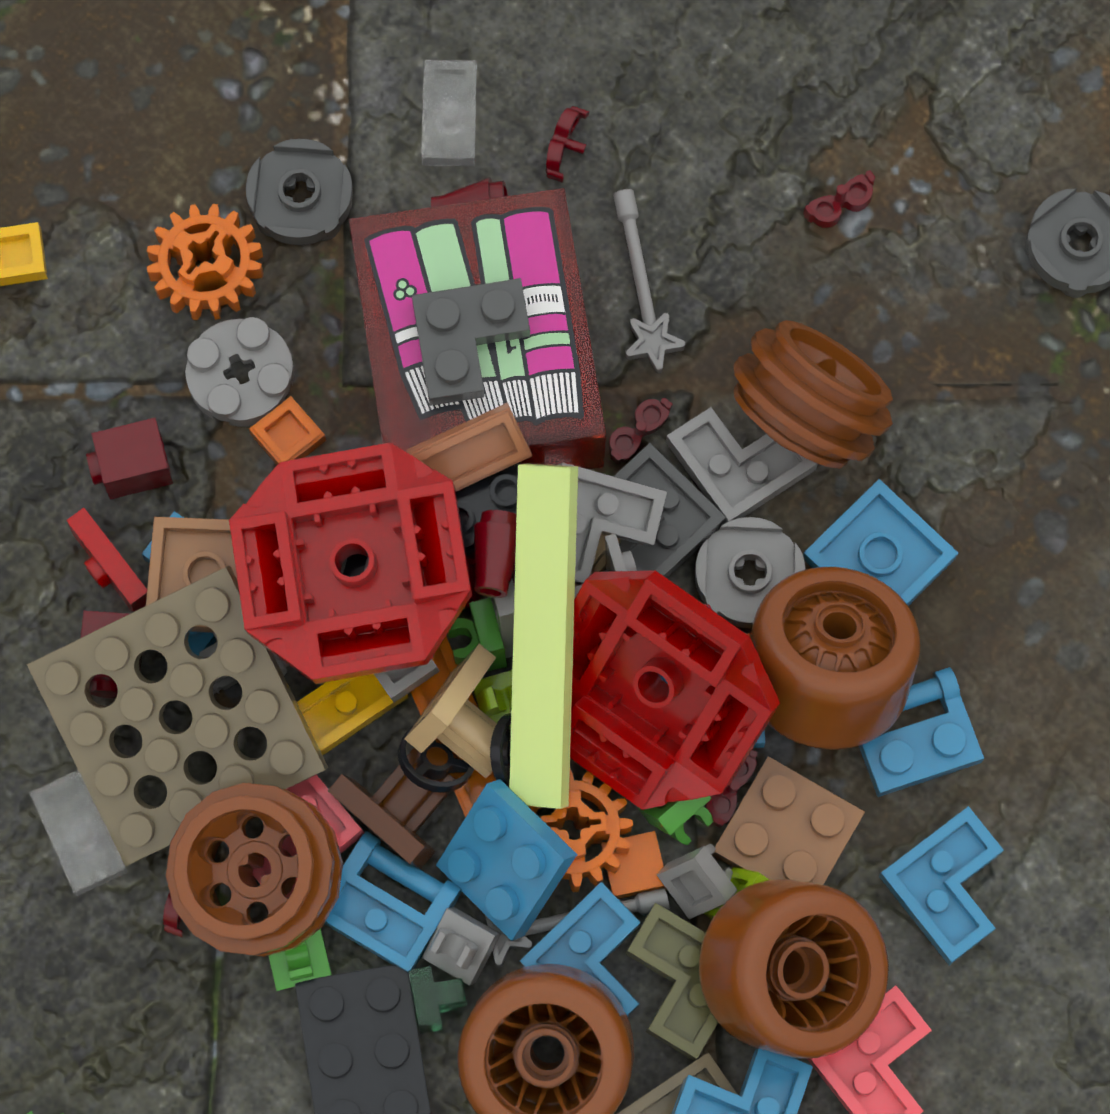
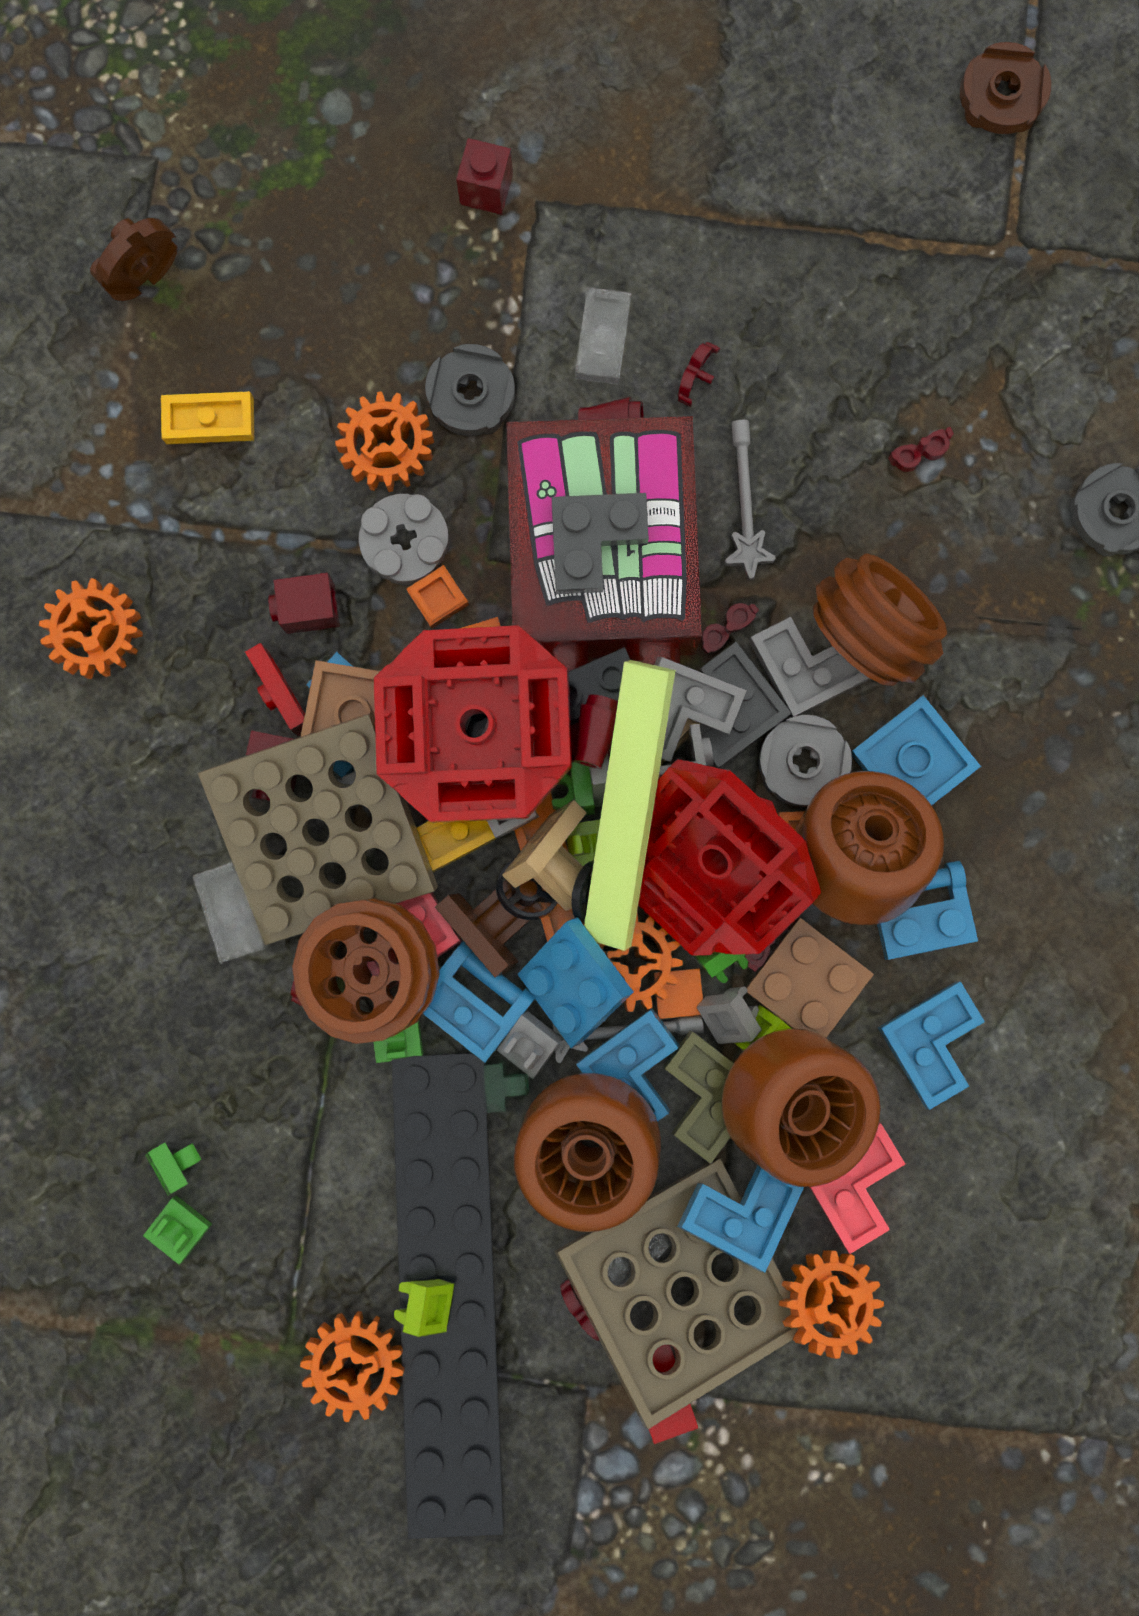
camera: 10 degrees right, 10 degrees up
(475, 448) = (588, 637): nougat tile -> none

